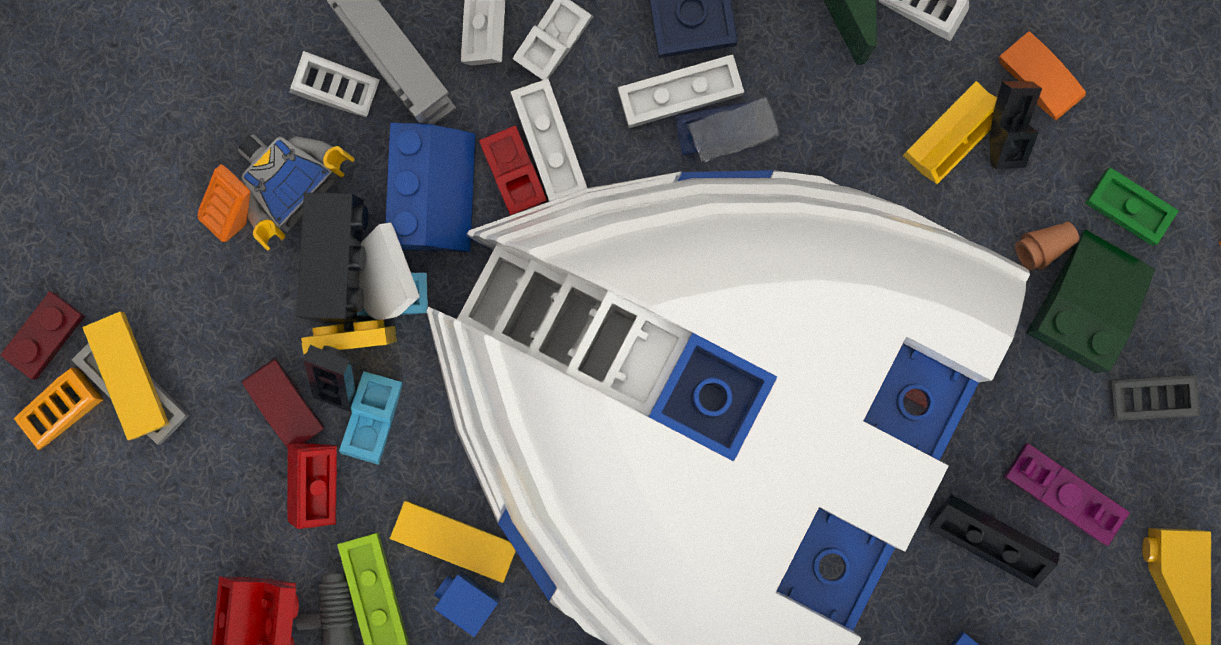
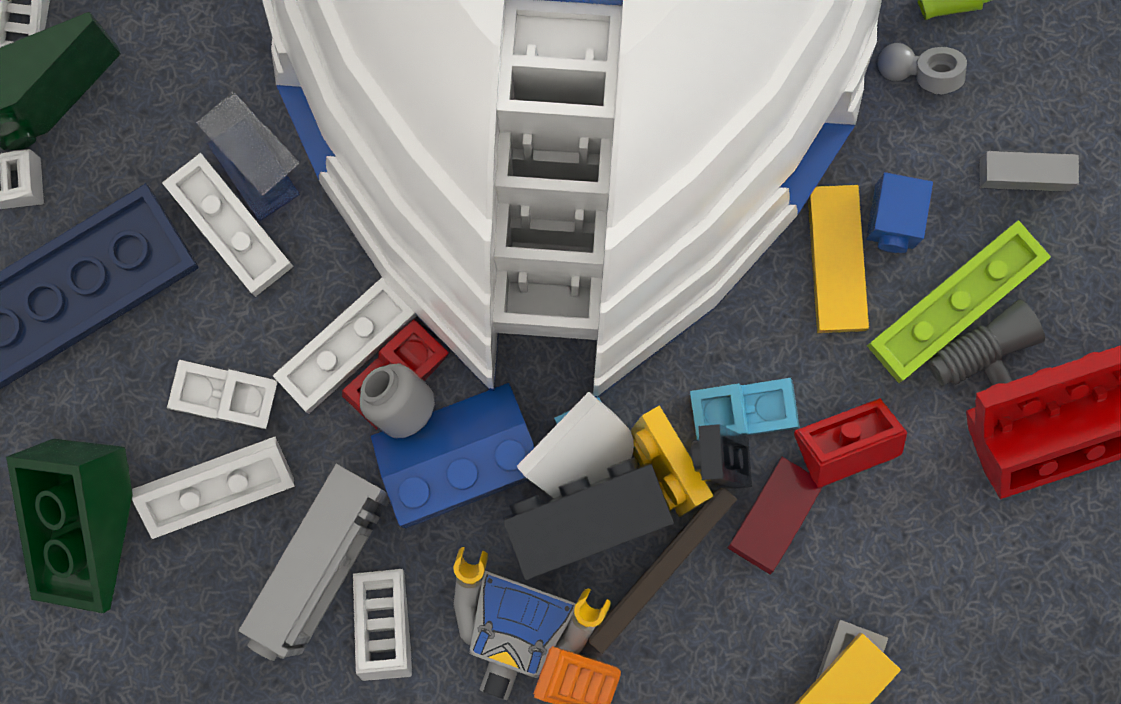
camera: 115 degrees left, 5 degrees down
(275, 294) = (661, 569): none -> dark brown tile
(485, 159) = (396, 400): none -> light grey head

